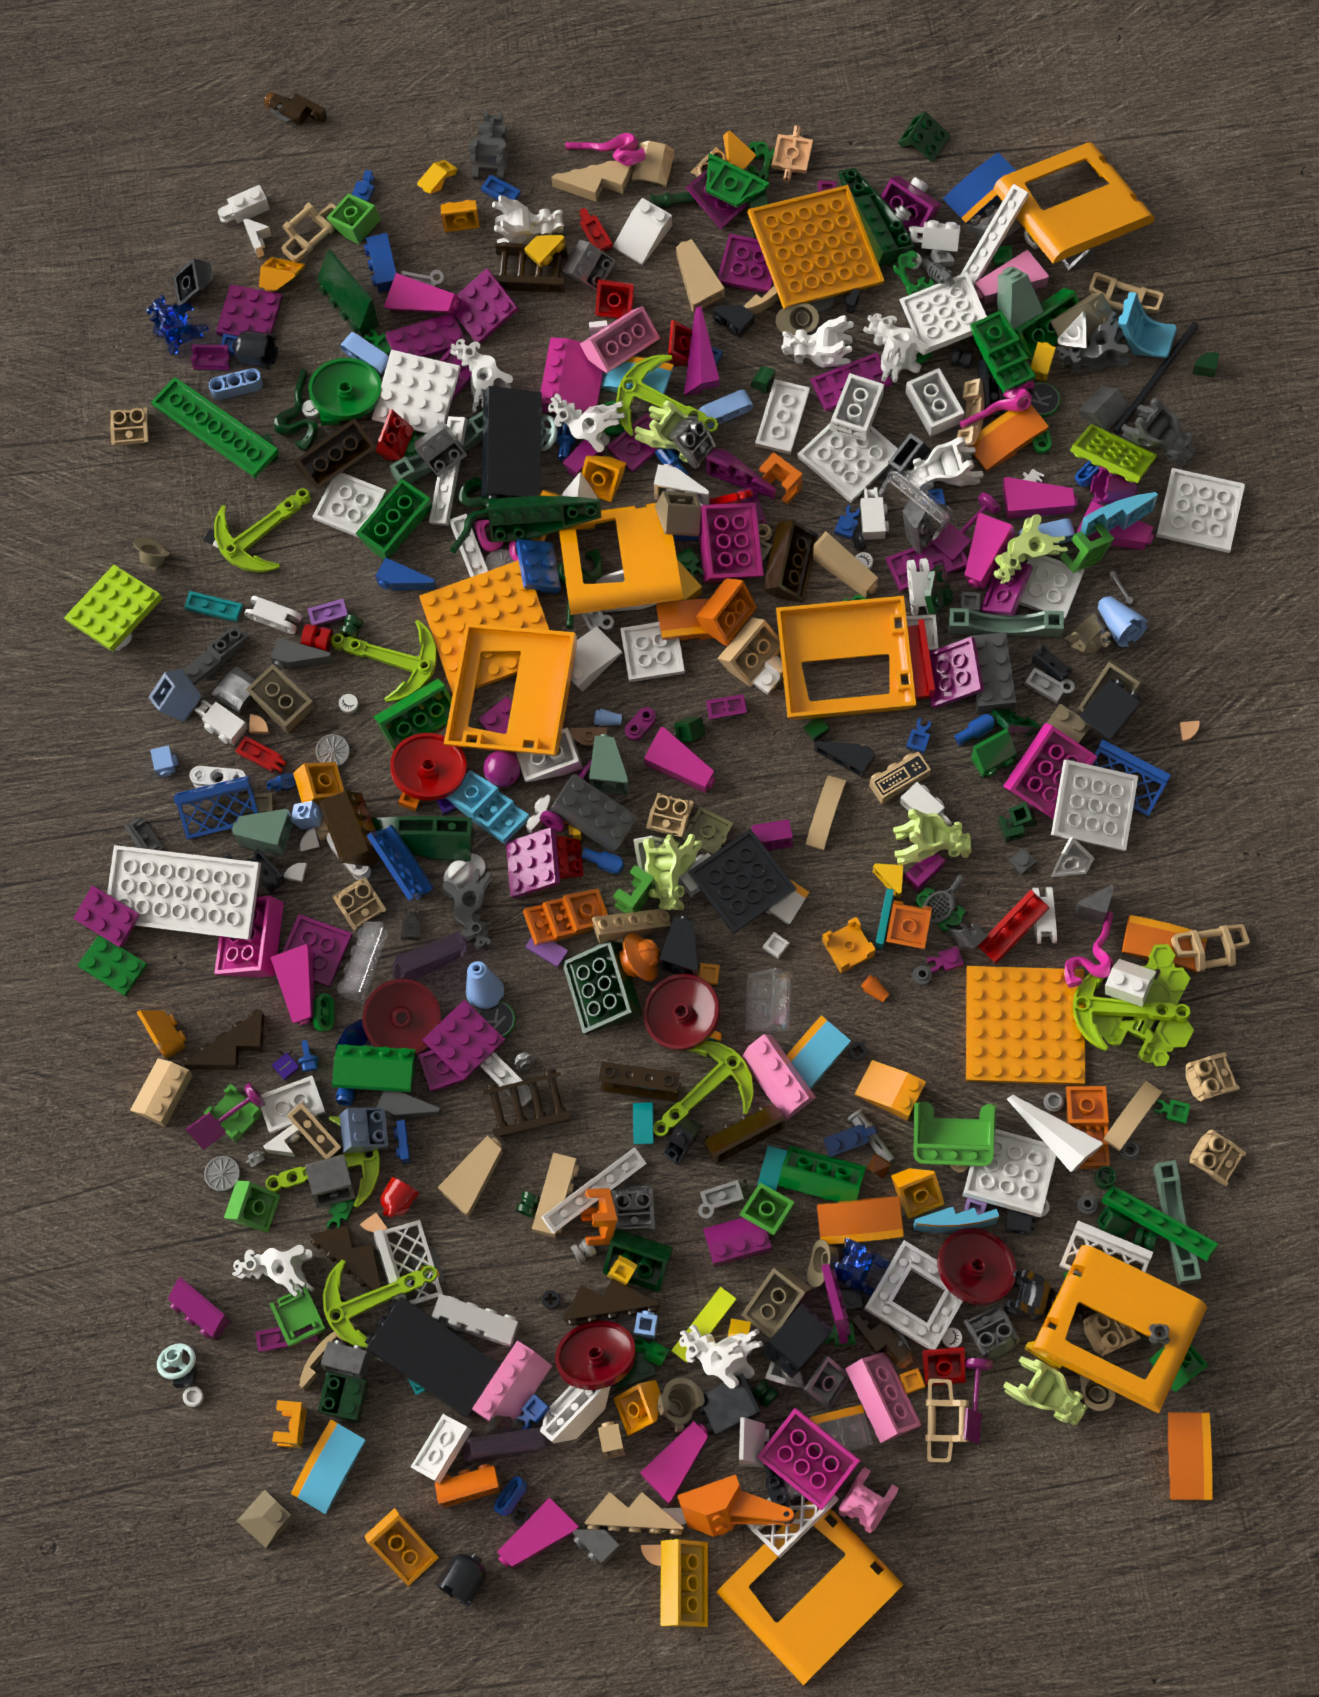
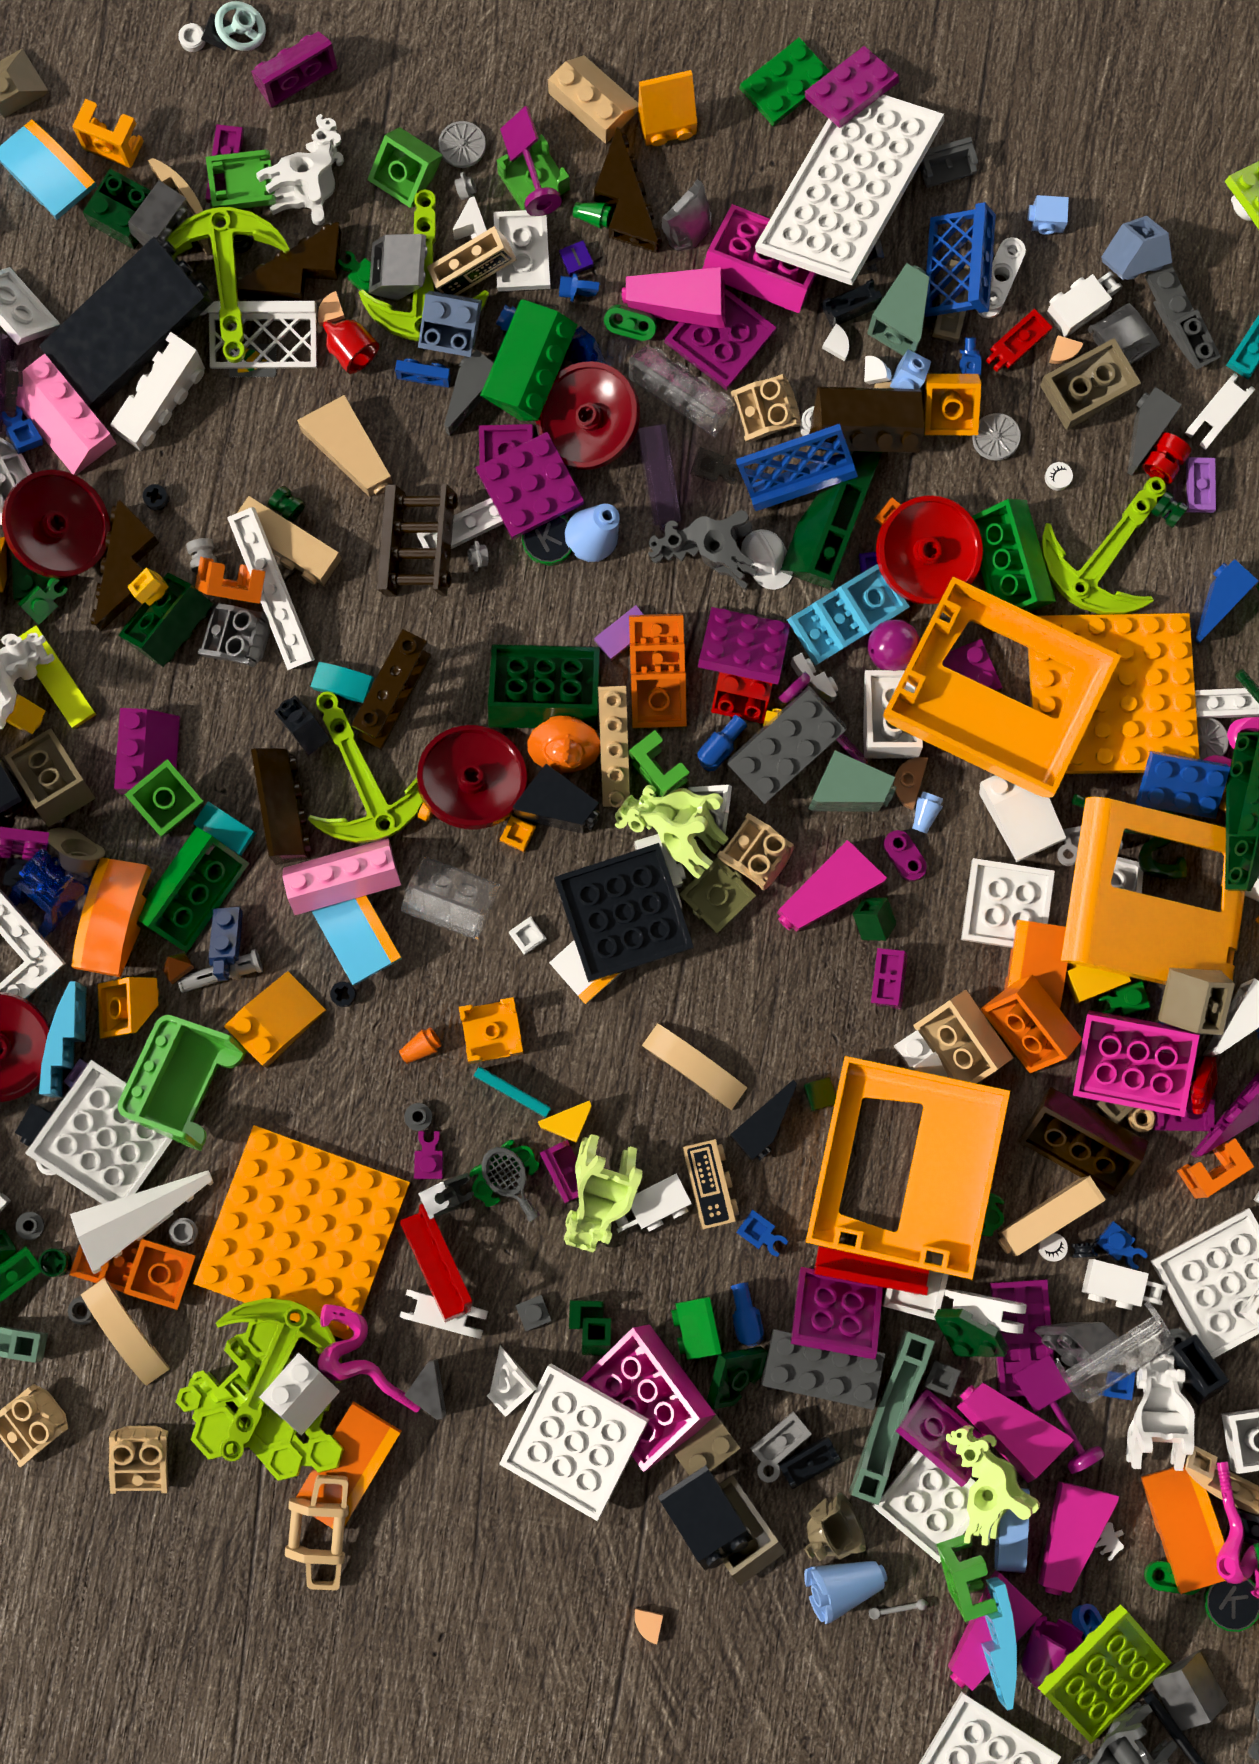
camera: 100 degrees right, 10 degrees up
(235, 993) = (688, 219): none -> slope
(249, 1063) = (594, 213): none -> green cone
(646, 1325) = (74, 601): light blue brick -> none
(720, 1197) = (210, 749): light grey hinge -> none
(774, 834) = (682, 981): magenta hinge -> none
(909, 925) = (486, 1119): orange panel -> none
(1138, 766) = (616, 1527): blue fence -> none
(1175, 1111) = (111, 1392): green plate -> none

